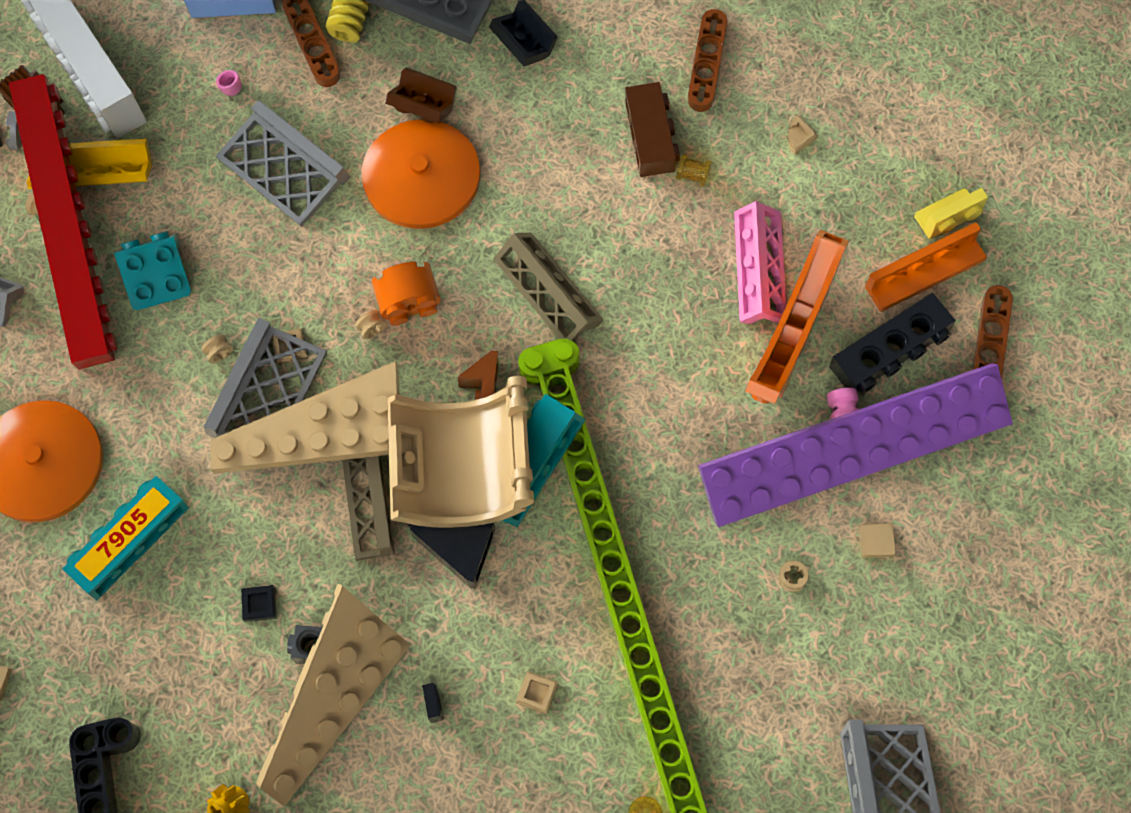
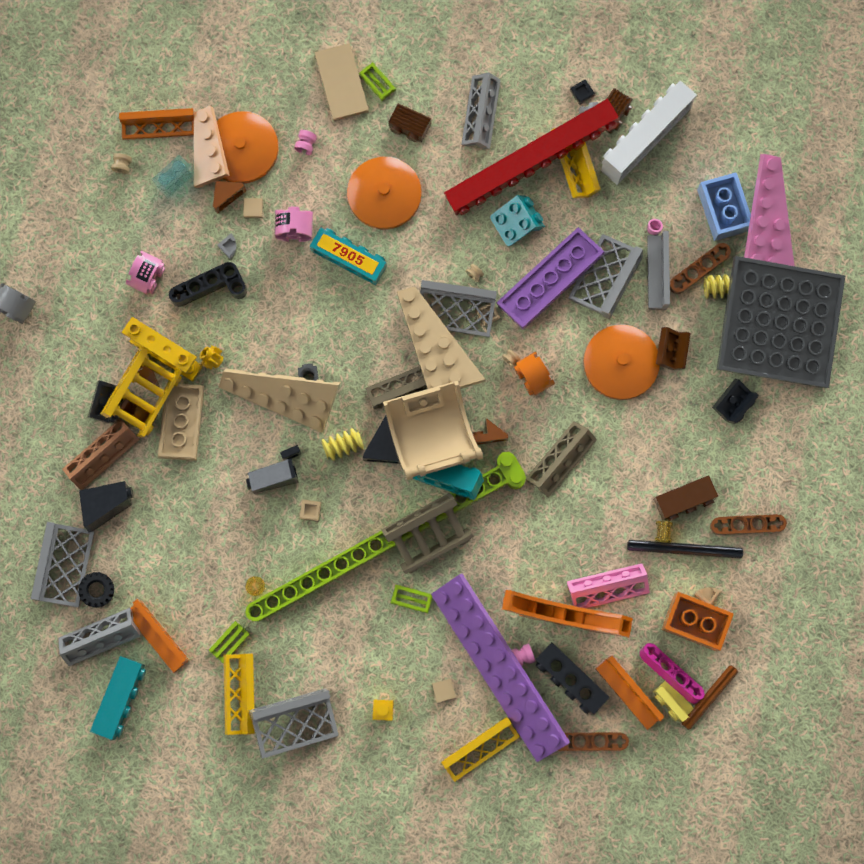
camera: 75 degrees right, 10 degrees up
(41, 738) = (228, 246): none -> light grey tile
(42, 612) = (293, 224): none -> bright pink brick
(258, 603) = (328, 341): black tile -> none
(262, 241) = (550, 278): none -> medium lavender plate
(297, 91) = (658, 271): none -> light grey fence
(438, 613) = (342, 444): none -> light yellow piece
(466, 739) = (272, 476): none -> slope
(596, 515) = (411, 524): none -> dark tan fence
(707, 583) = (427, 603): none -> lime tile
(724, 151) = (686, 549): none -> black axle
(785, 569) = (406, 649): tan bush -> none
(838, 151) = (697, 621): none -> orange brick
(895, 639) = (383, 709): none -> yellow brick
(930, 189) = (670, 675): none -> dark pink beam
(947, 159) = (710, 696): none -> dark orange axle
(972, 507) = (472, 745): none -> yellow fence

